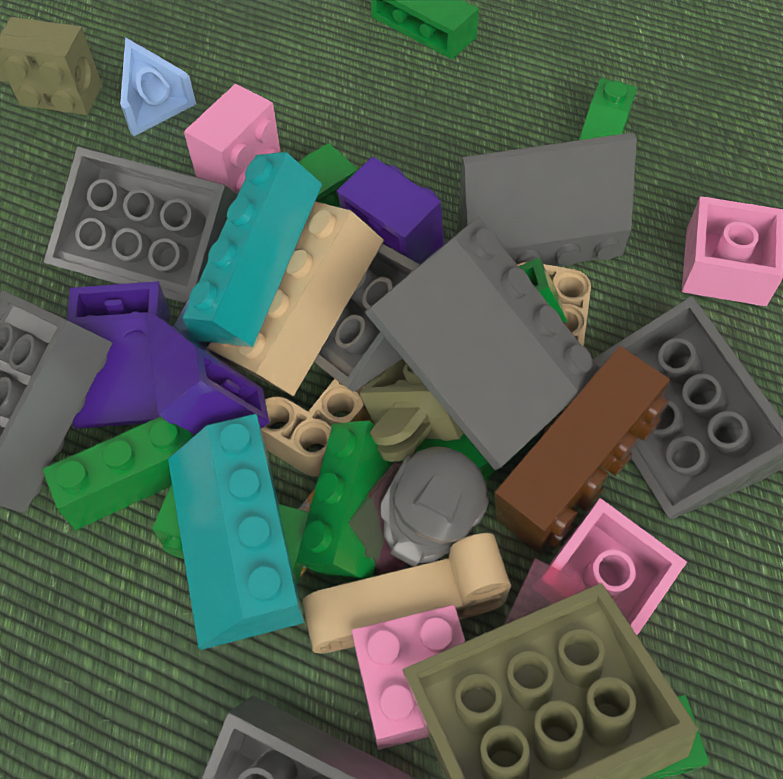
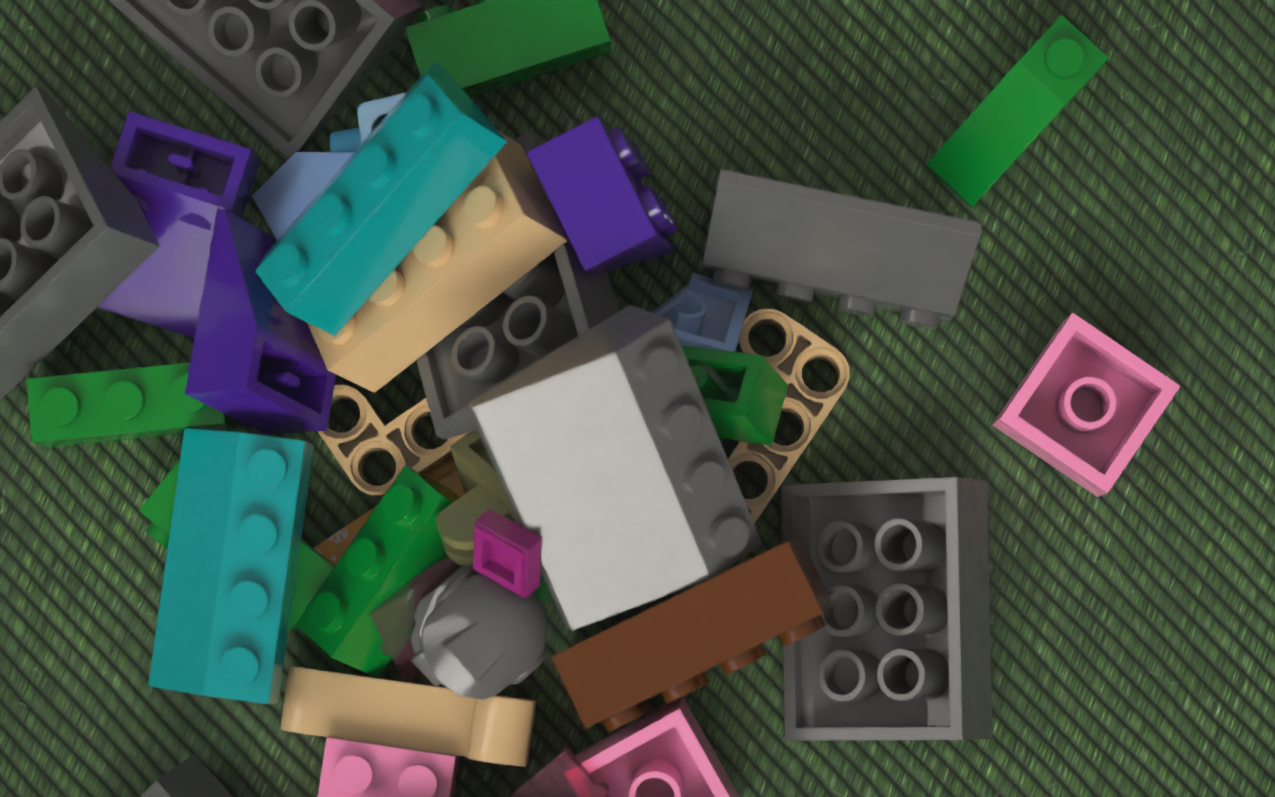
camera: 25 degrees right, 25 degrees up
(433, 422) = (507, 553): none -> magenta tile

